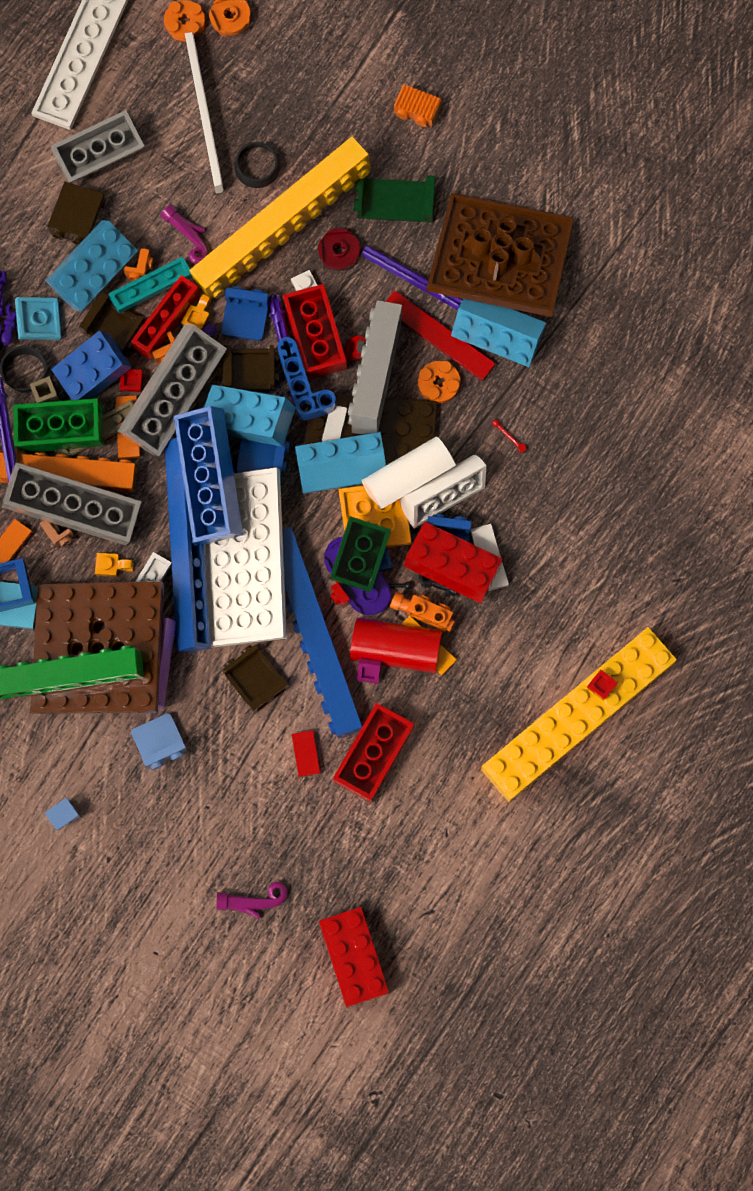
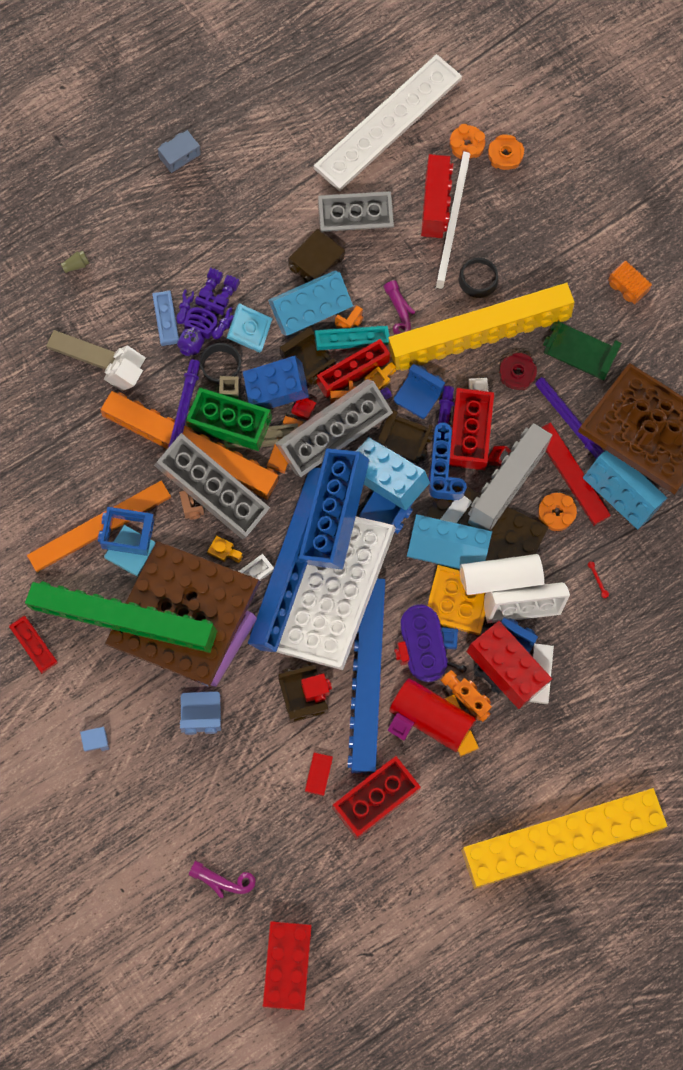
camera: 15 degrees right, 5 degrees down
(176, 94) = (437, 196): none -> red brick
(267, 667) = (316, 688): none -> red brick
(360, 554) = (433, 625): dark green brick -> none
(602, 685) = (595, 821): red plate -> none

